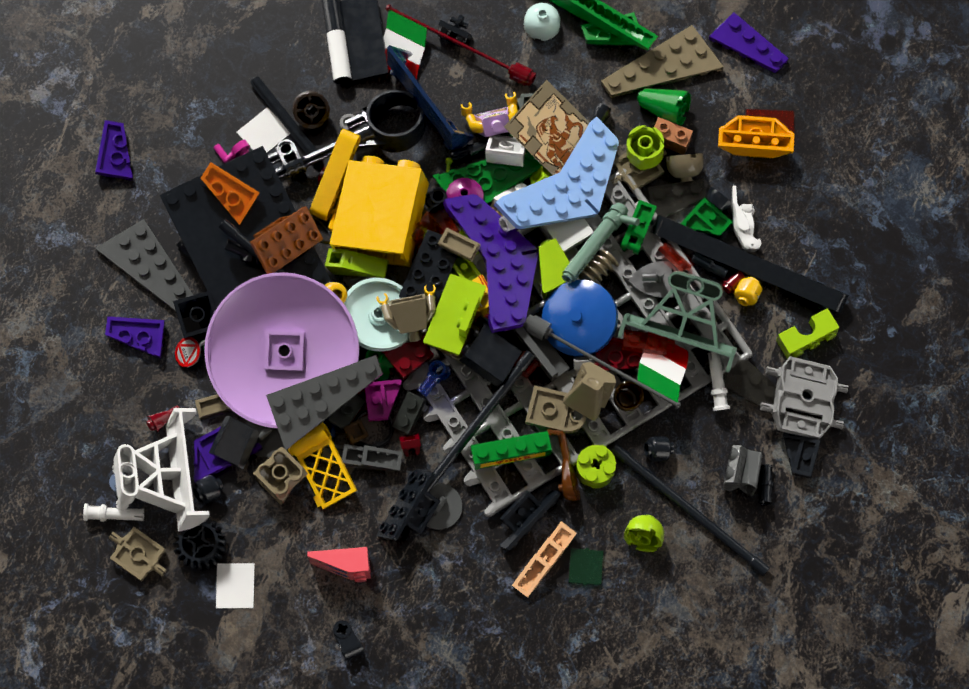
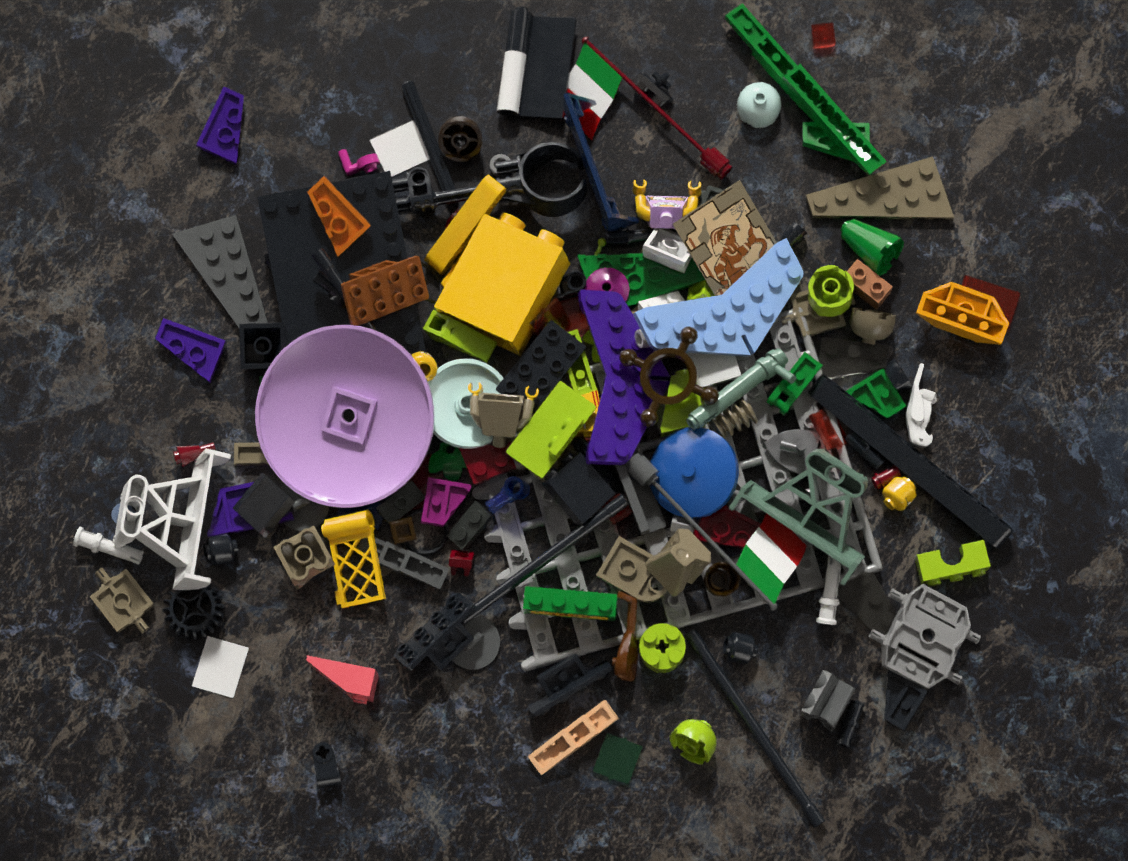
camera: 20 degrees right, 5 degrees up
(188, 351) = (242, 384): piece -> none
(312, 401) = (362, 484): dark grey wing -> none
(459, 244) = (580, 349): dark tan tile -> none
(543, 209) = (629, 358): none -> dark brown piece
(647, 343) = (761, 524): clear red hinge -> none
(742, 38) = (988, 190): dark purple wing -> none

